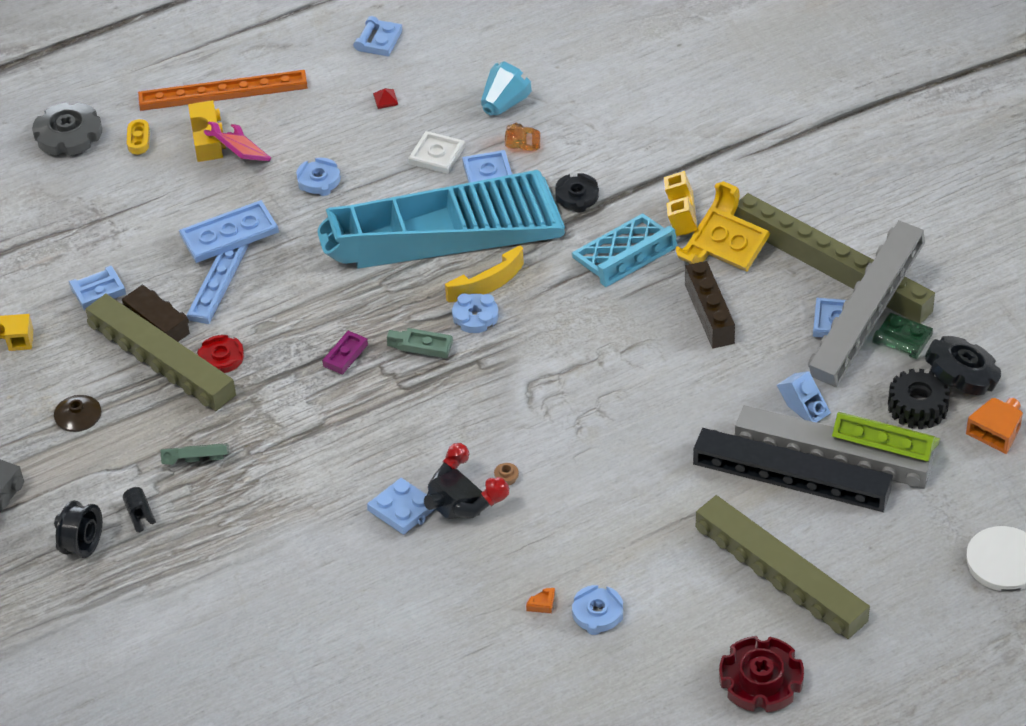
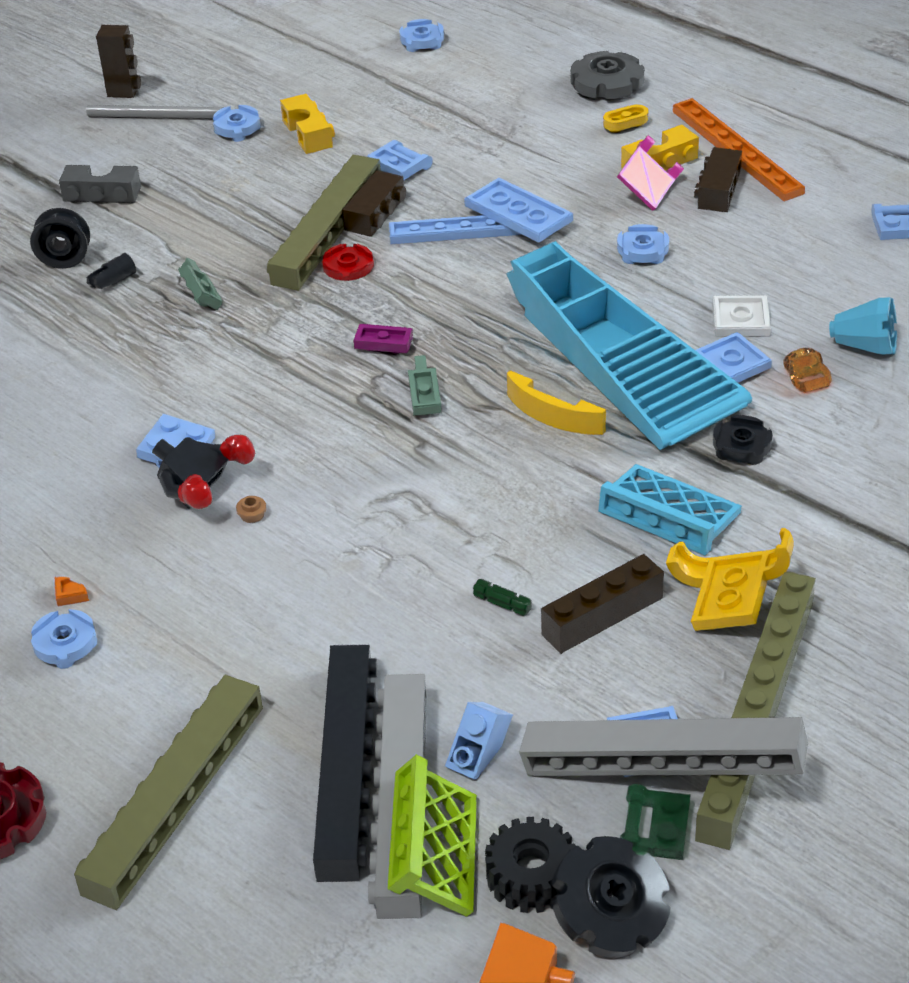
camera: 70 degrees right, 5 degrees down
(77, 413) = (232, 204): dark brown dish -> none
(266, 109) = (718, 179): none -> dark brown brick
(385, 98) = (804, 255): red slope -> none
(480, 303) = (482, 412): light blue plate -> none
(671, 356) = (502, 597): none -> dark green axle
(681, 203) = (737, 531): yellow arch -> none

